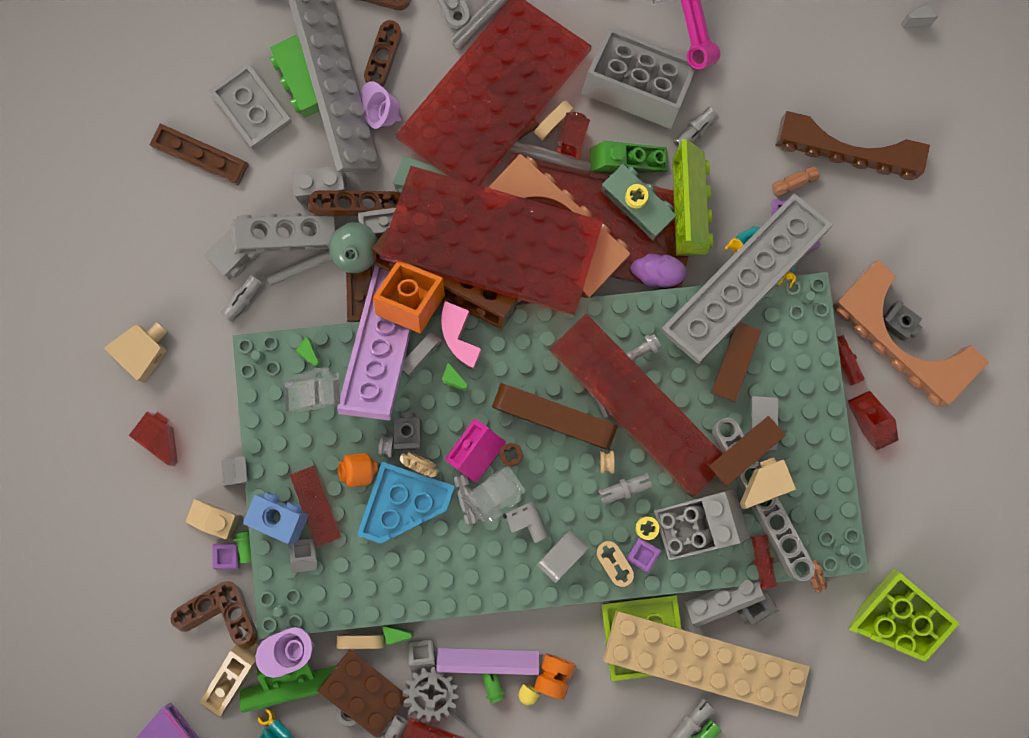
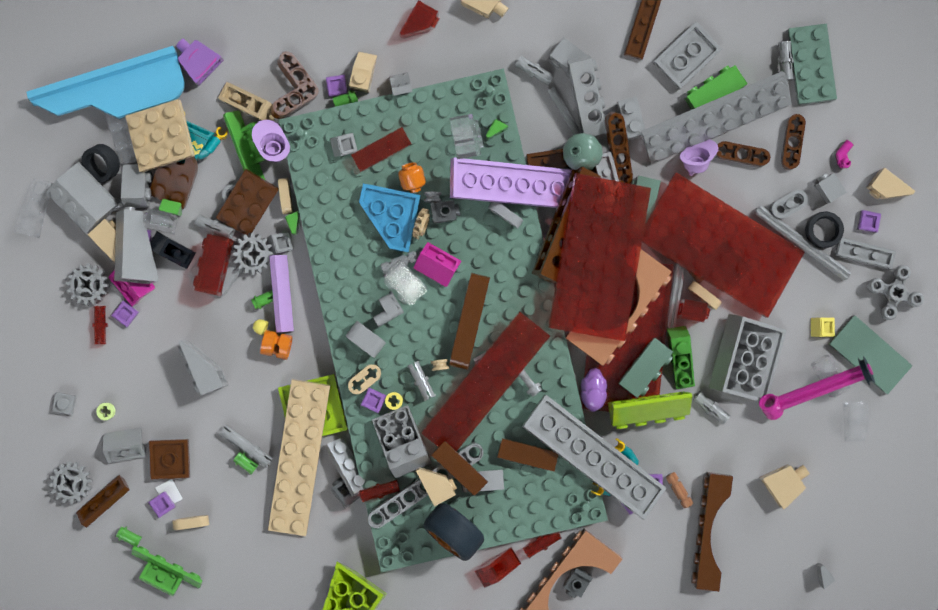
camera: 80 degrees right, 5 degrees up
(261, 517) = (368, 110): medium blue brick -> none
(409, 296) = (547, 199): orange brick -> none
(453, 324) = (531, 236): bright pink brick -> none
(453, 379) = (489, 241): bright green slope -> none
(508, 447) = (431, 294): reddish brown bush -> none
(633, 189) = (653, 362): light yellow bush -> none
(801, 50) = (785, 484): none -> tan torso
(818, 583) = (373, 533): nougat axle -> none
(830, 468) = (453, 531): none -> black wheel

